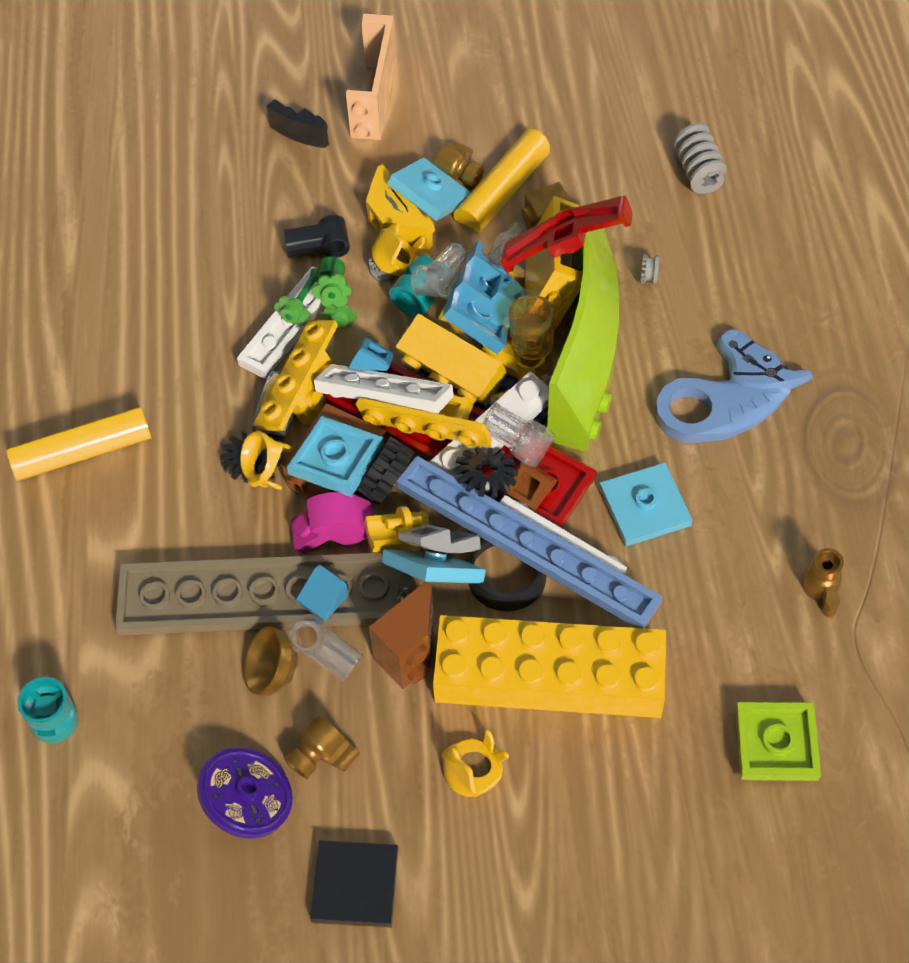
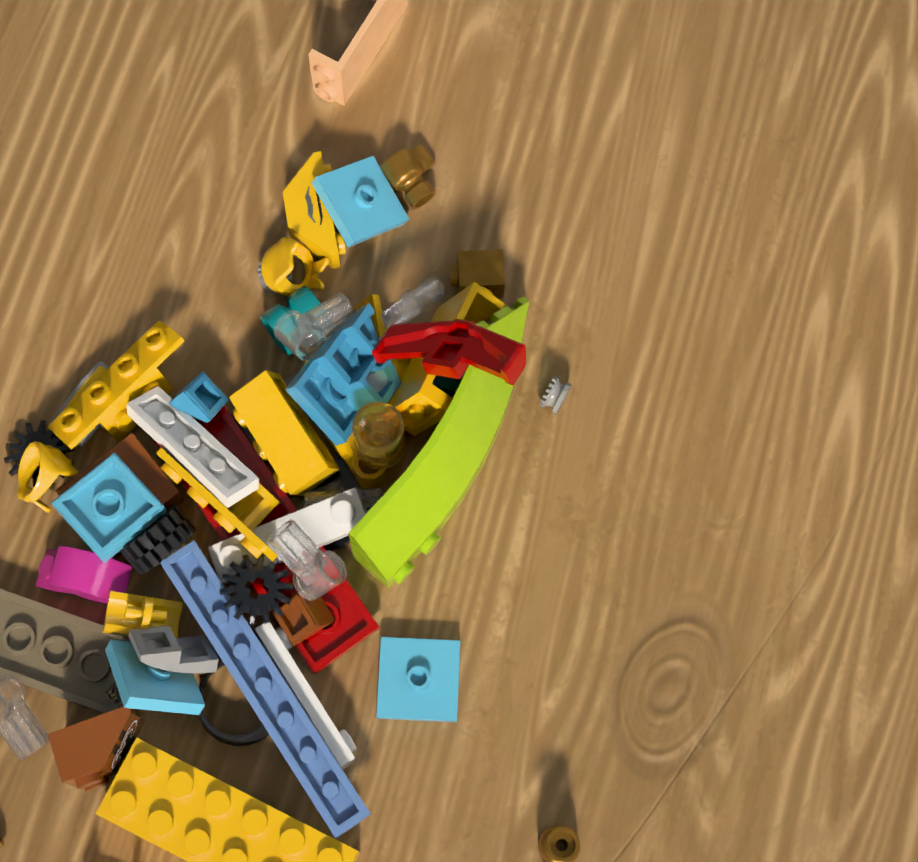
camera: 15 degrees right, 15 degrees up
(277, 336) = (143, 307): white plate -> none
(300, 127) = (258, 58): black slope -> none
(322, 593) = (33, 658): dark azure slope -> none
(327, 238) = (226, 216): black piece -> none
(330, 289) = (201, 277): bright green plant -> none
(503, 180) = (450, 215): yellow brick -> none
(700, 158) = (674, 274): light grey piece -> none
(753, 392) = (581, 596): medium blue animal -> none

